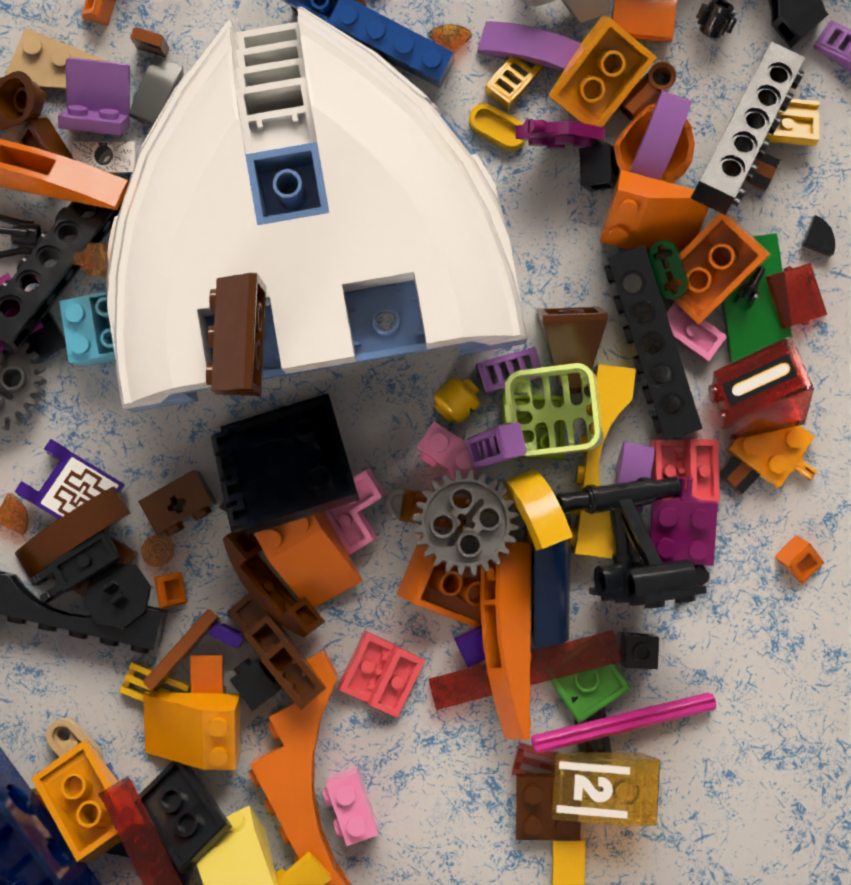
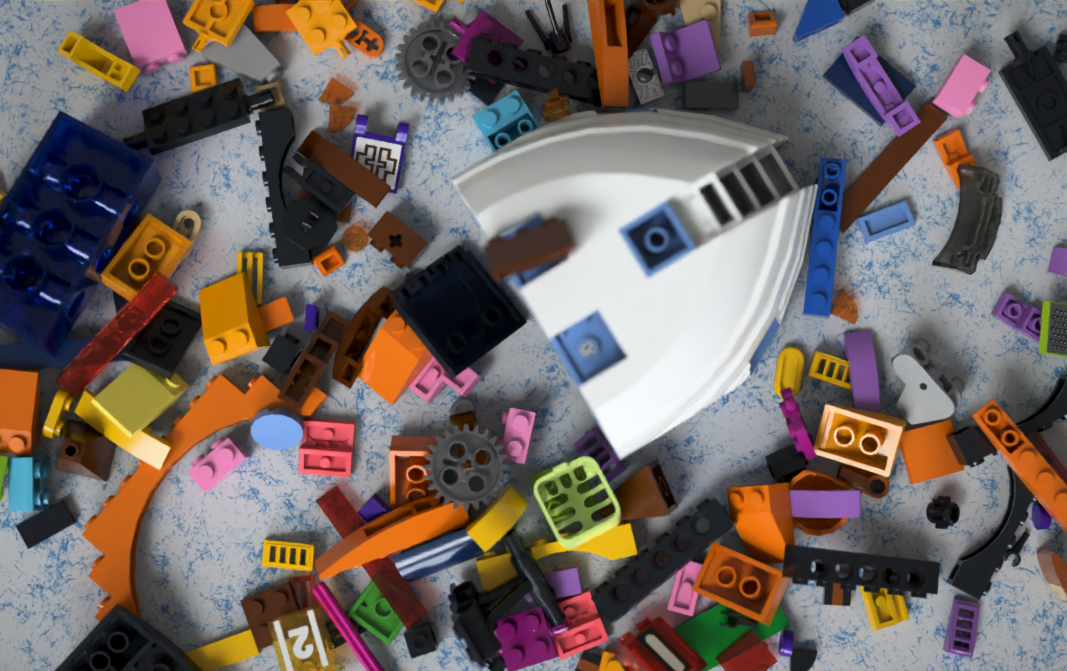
camera: 70 degrees right, 0 degrees up
(181, 650) = (287, 288): dark orange tile -> none
(338, 723) = (277, 429): none -> medium blue tile
(456, 399) = (560, 423): yellow head -> none
(498, 443) = (533, 468): medium lavender slope -> none
(498, 740) = (309, 560): none -> yellow slope
(676, 267) = (720, 545): dark green beam -> none
(795, 244) = (786, 643): none -> dark purple tile

